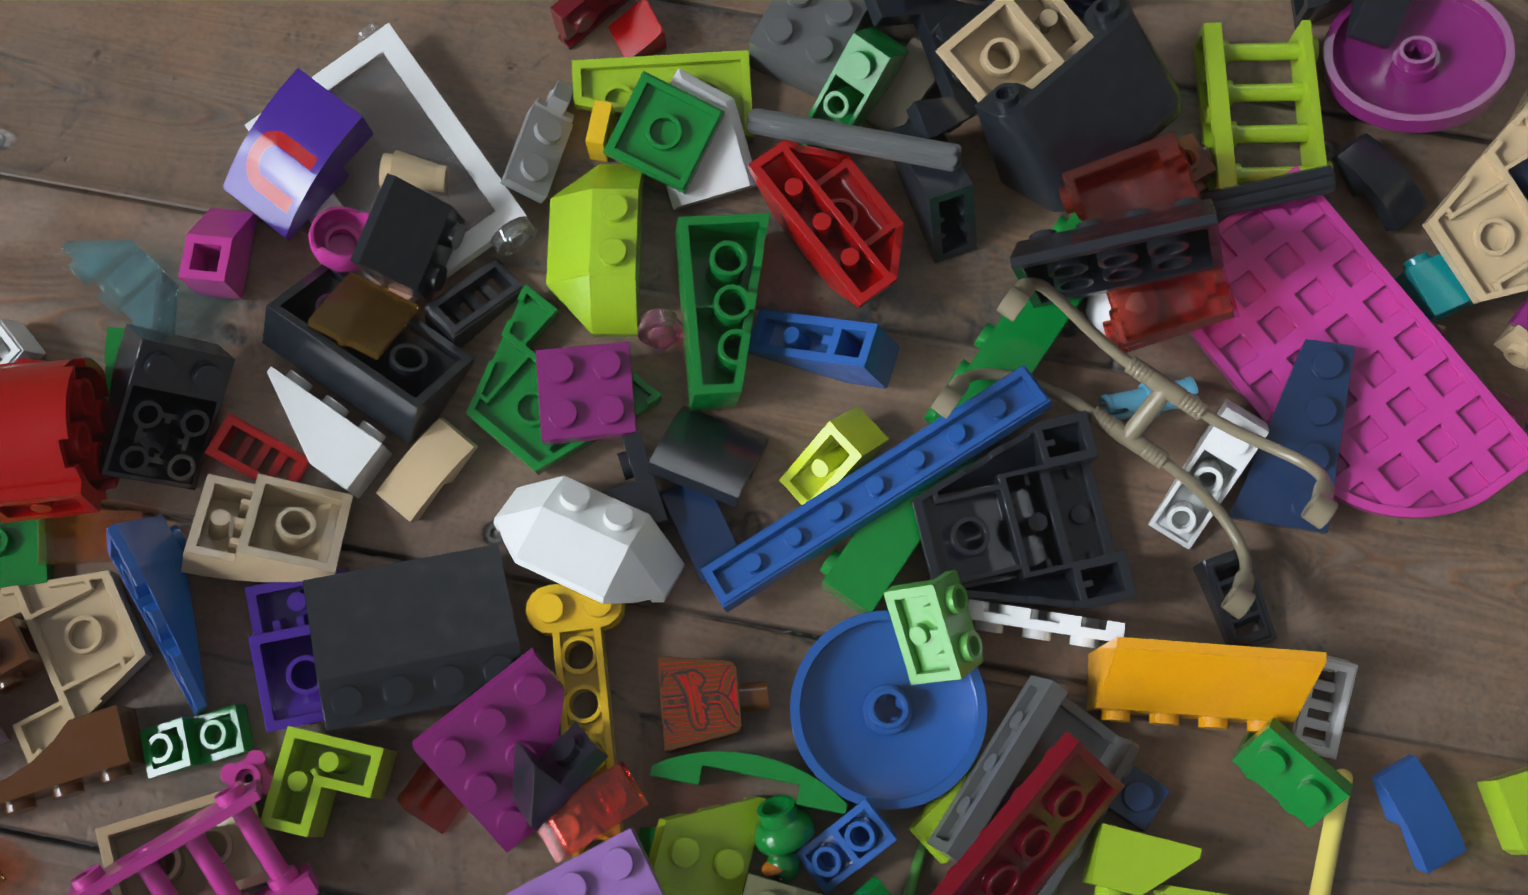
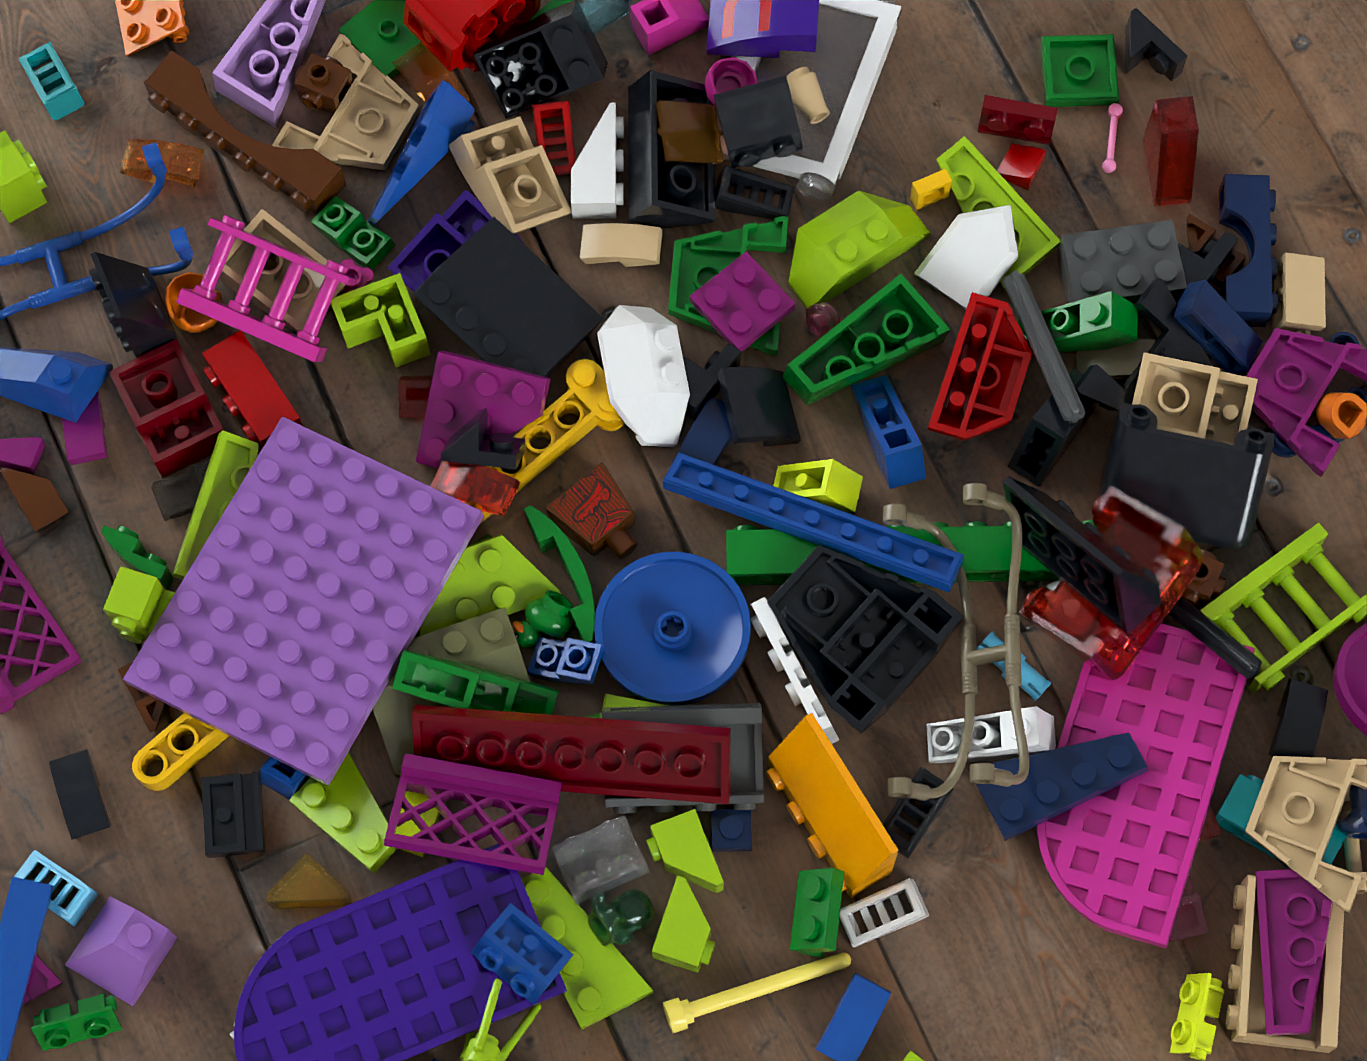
camera: 55 degrees right, 5 degrees down
(540, 144) = (891, 158): light grey hinge -> none
(664, 132) = (957, 227): green tile -> none
(934, 629) = (744, 615): bright green bracket -> none

